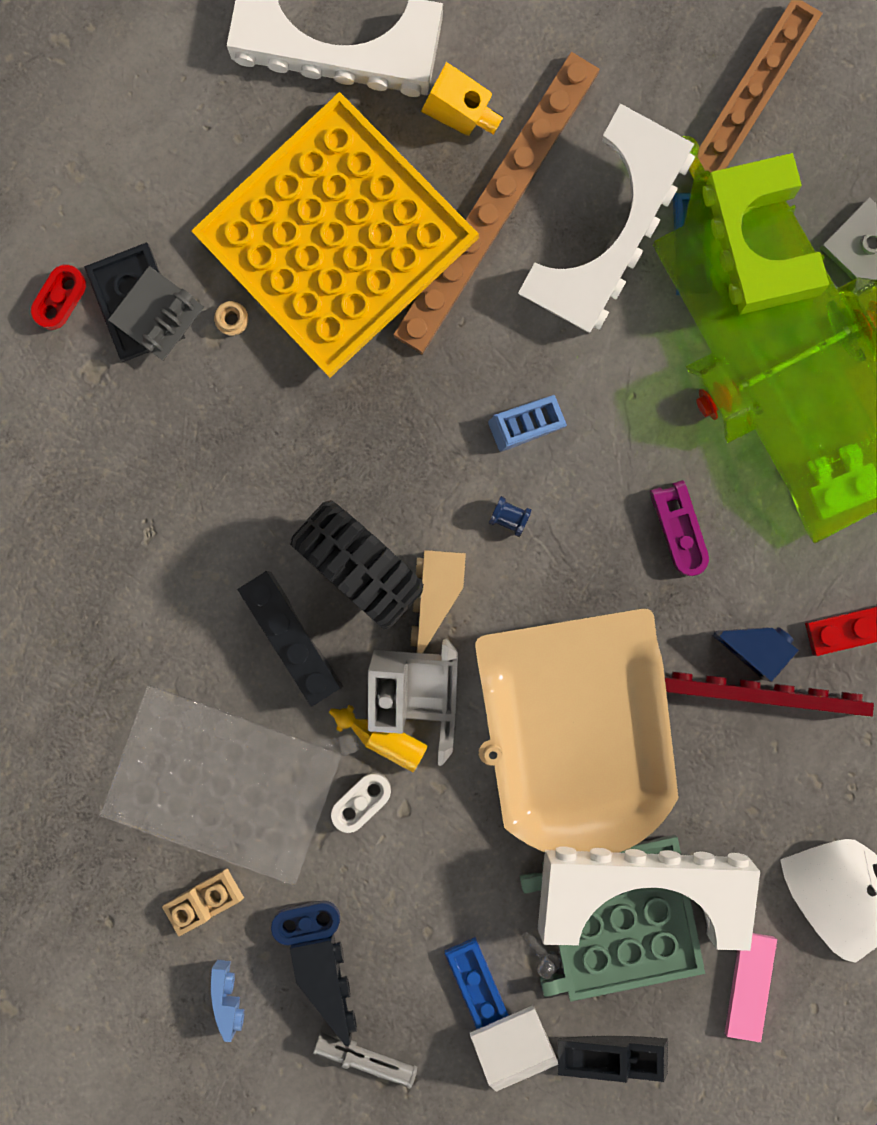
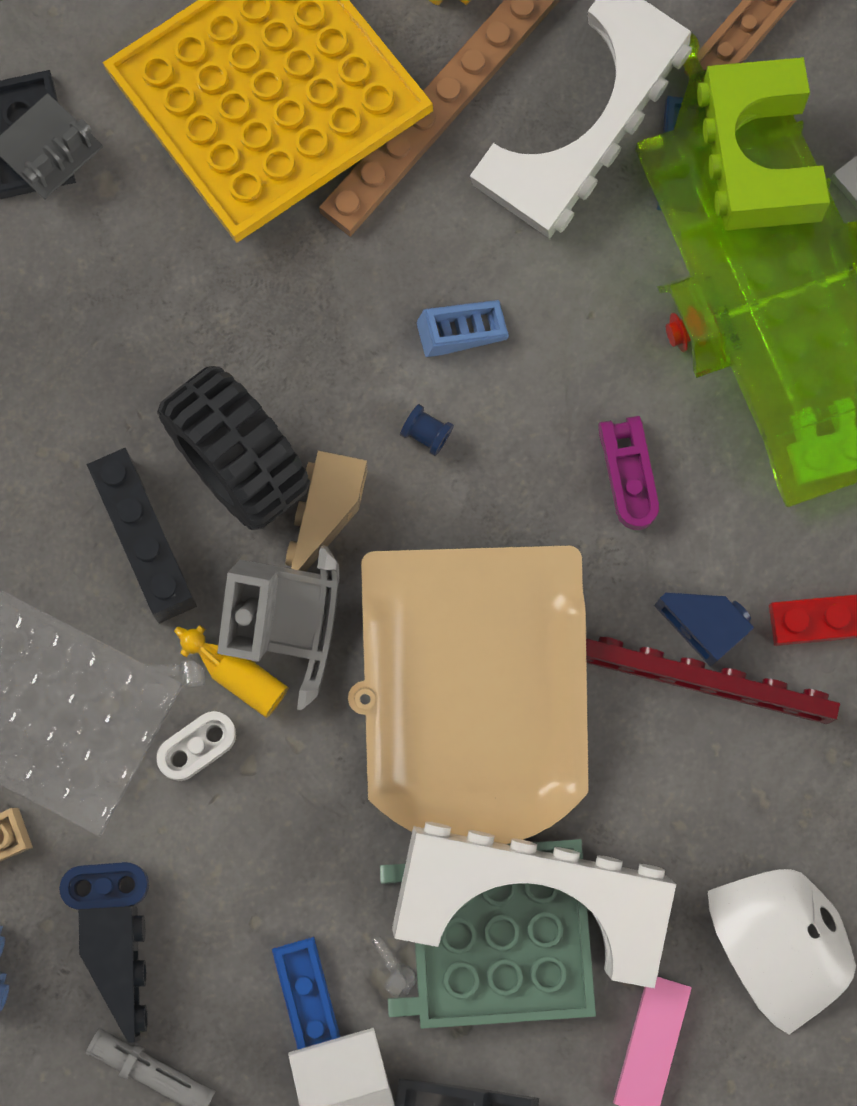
camera: 10 degrees right, 10 degrees down
(231, 308) = (131, 155): tan plate -> none

